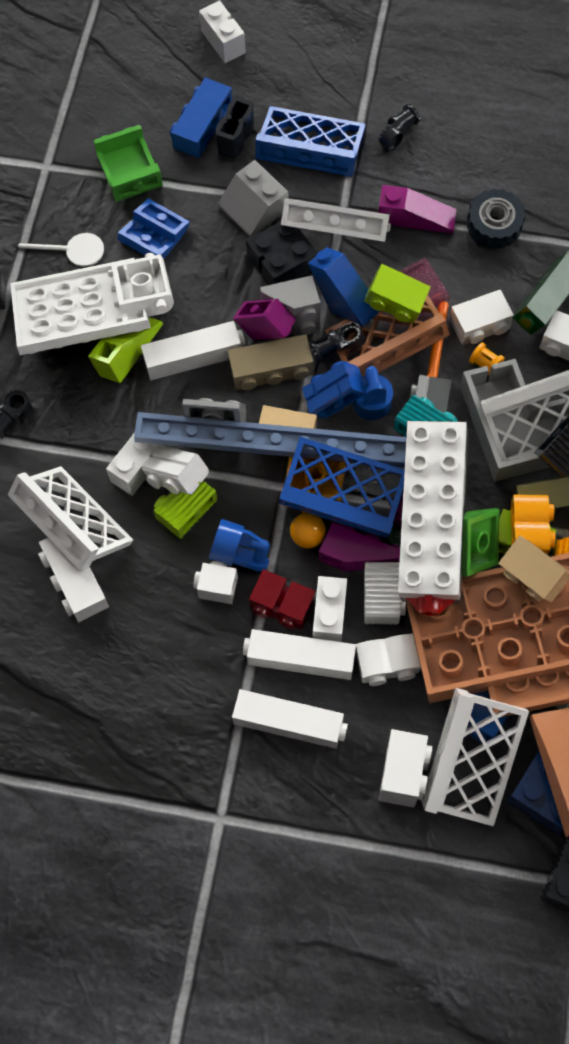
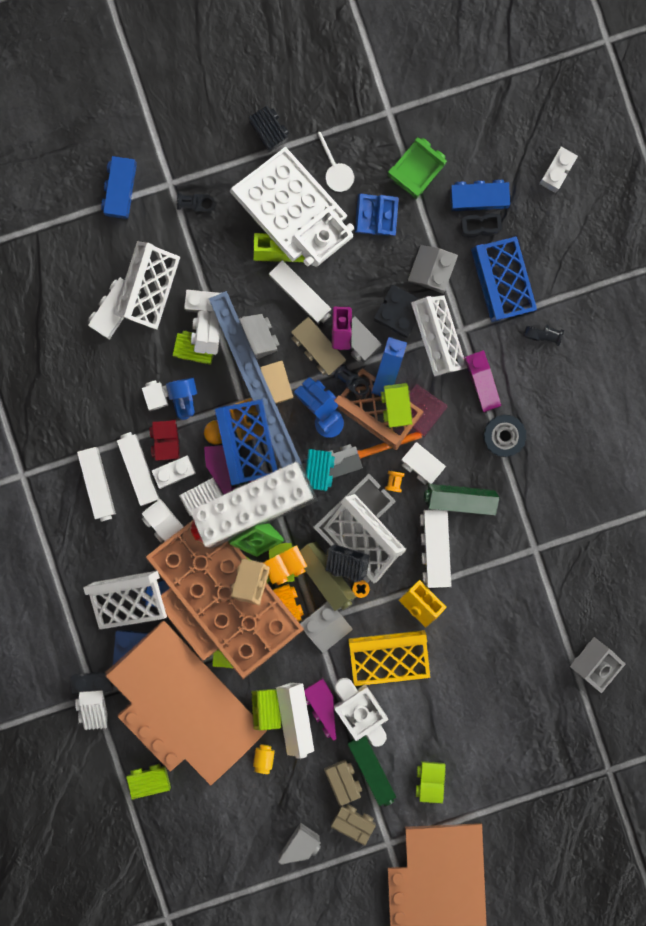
camera: 50 degrees right, 20 degrees up
(403, 768) = (100, 563): white brick -> none

